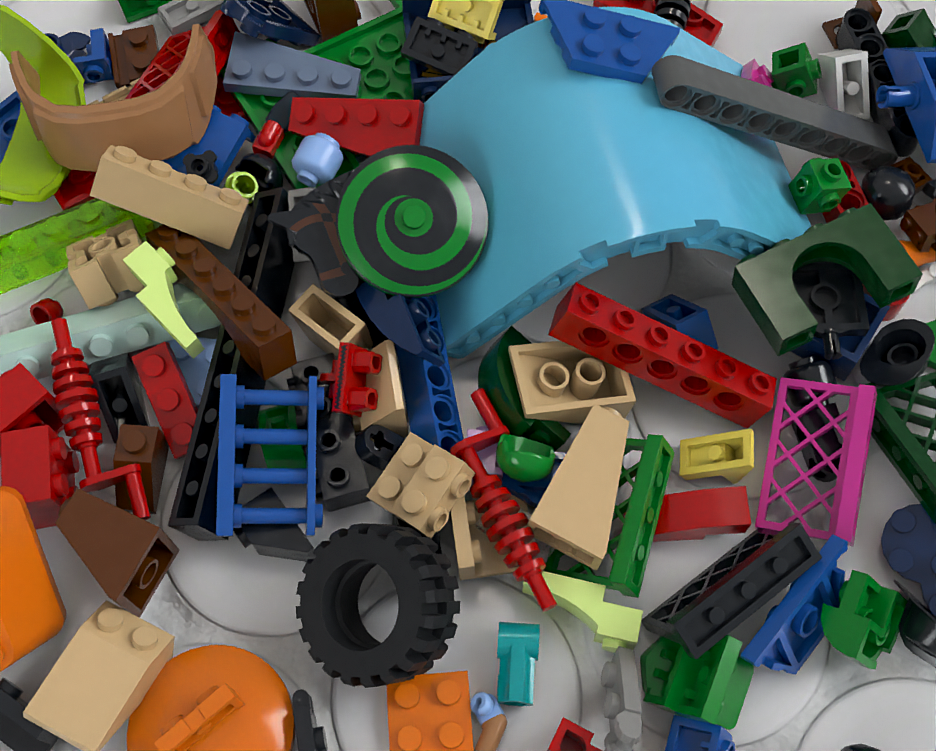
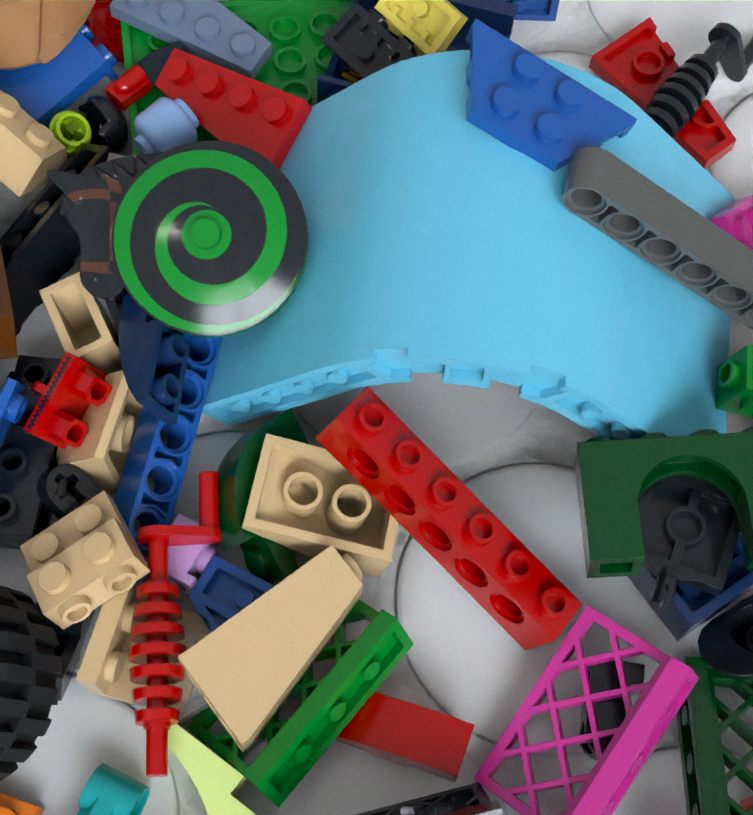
camera: 20 degrees right, 0 degrees up
(207, 160) = (43, 96): black plate -> none
(524, 458) = (221, 576): green hair -> none
(683, 317) = (503, 486): blue slope -> none
(718, 455) = (463, 670): light yellow slope -> none
(811, 370) = (633, 614): black head -> none

